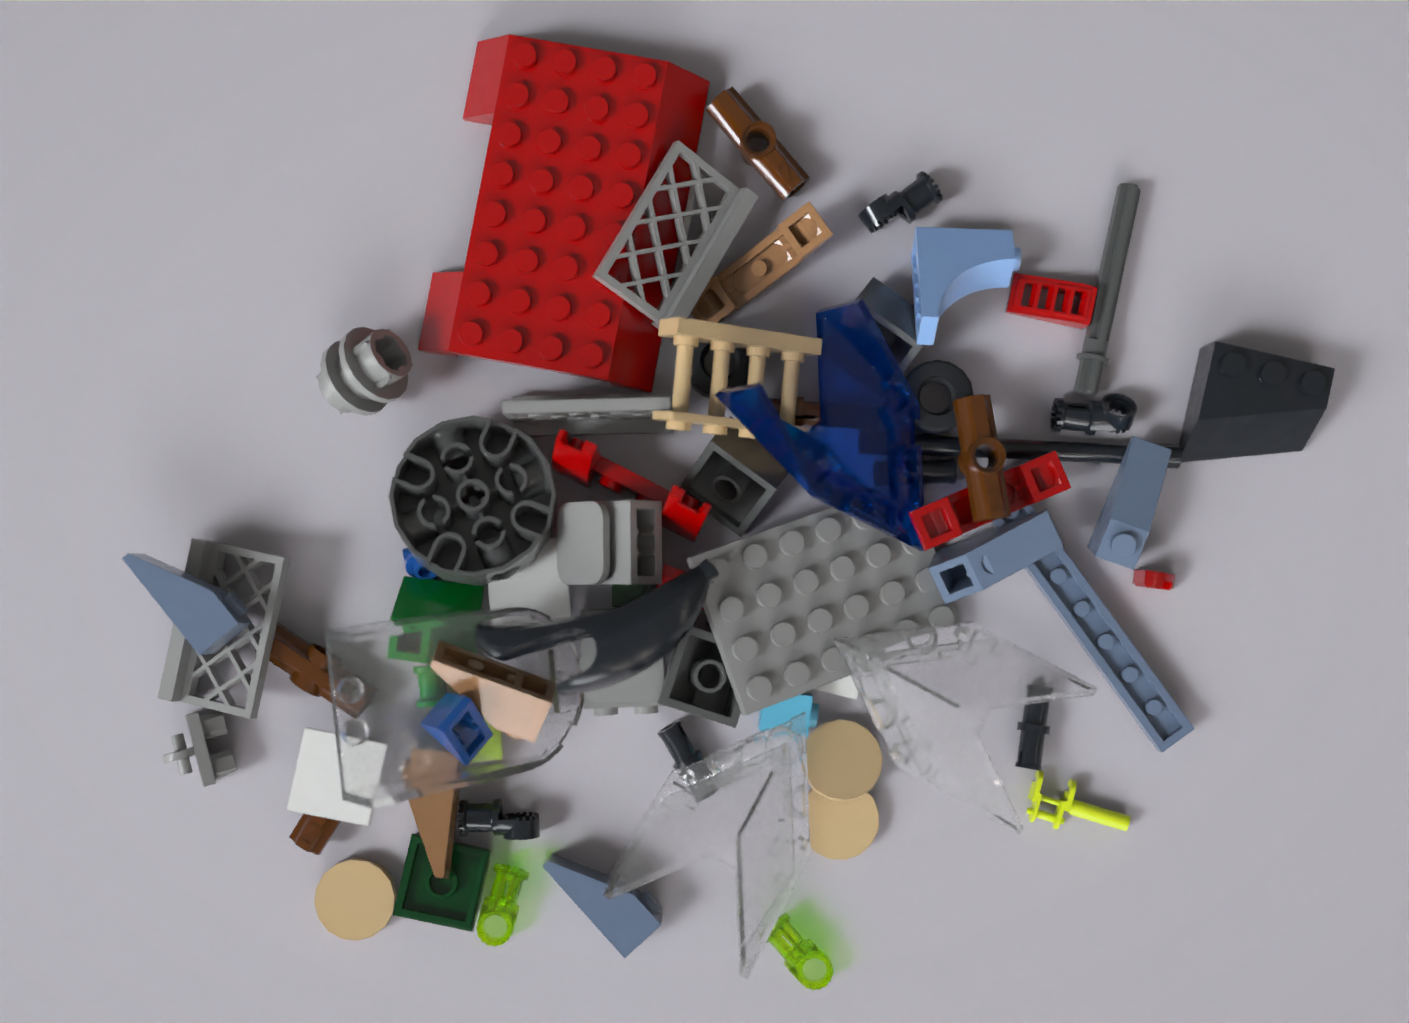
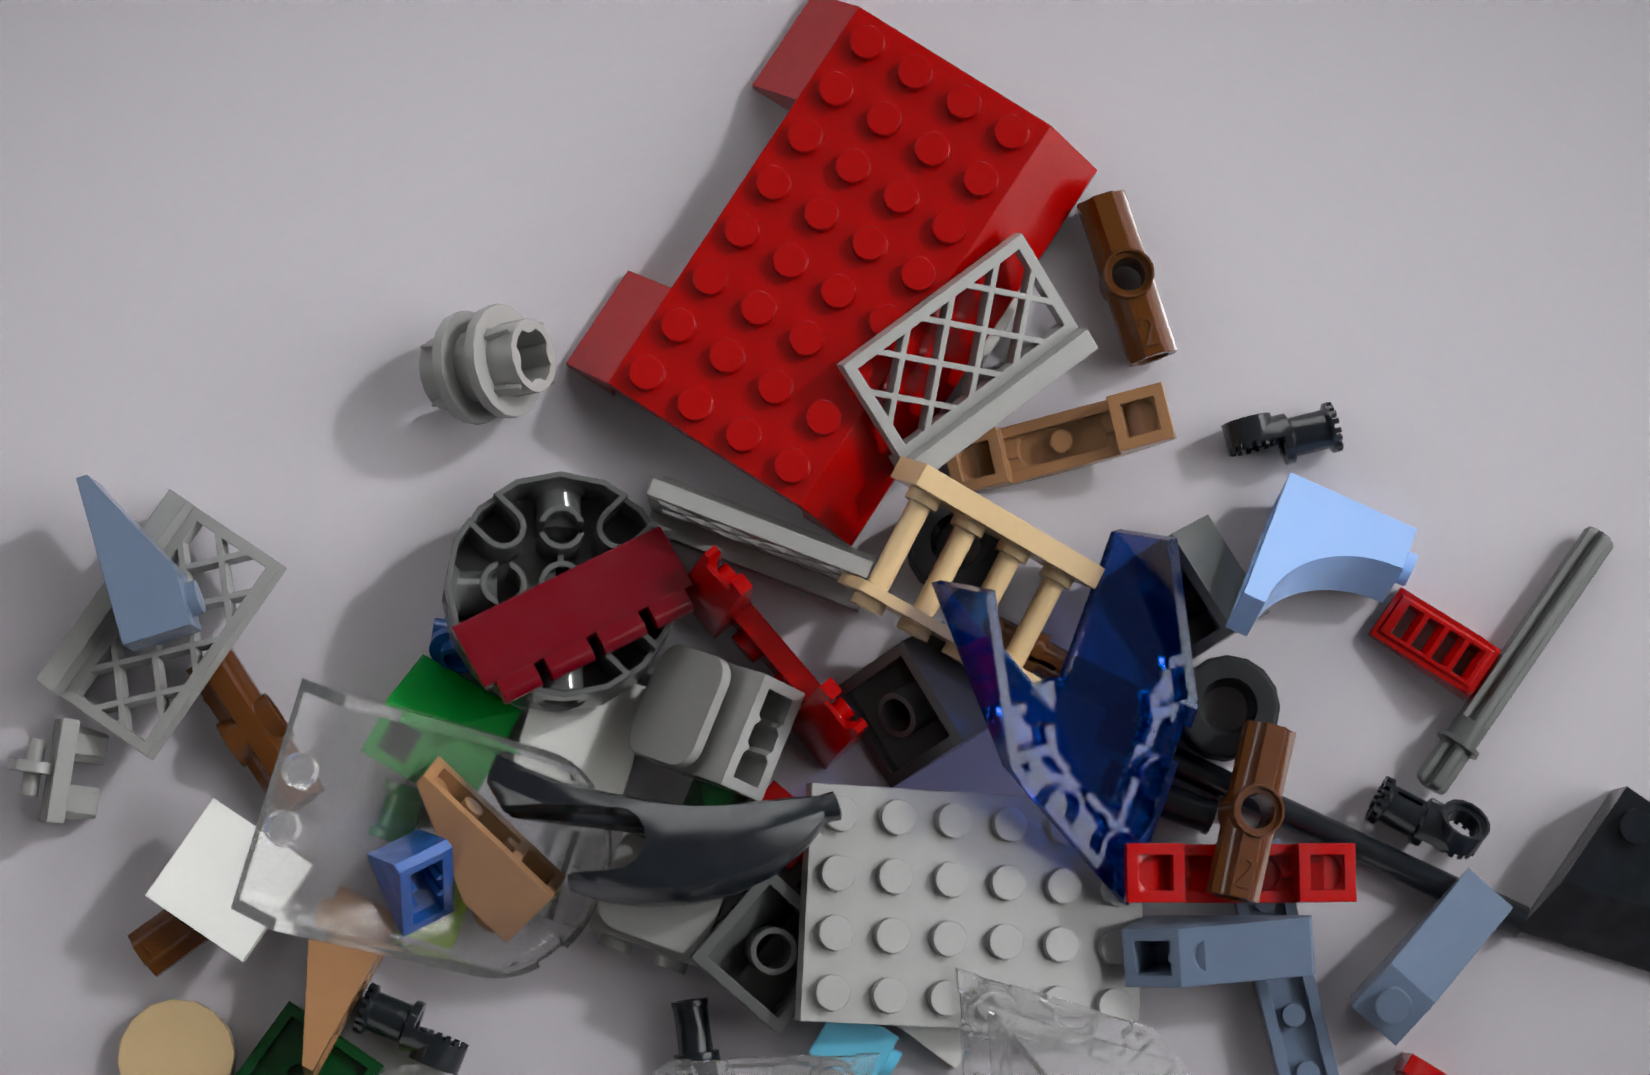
camera: 20 degrees right, 5 degrees down
(479, 516) = (564, 612): none -> dark red windscreen

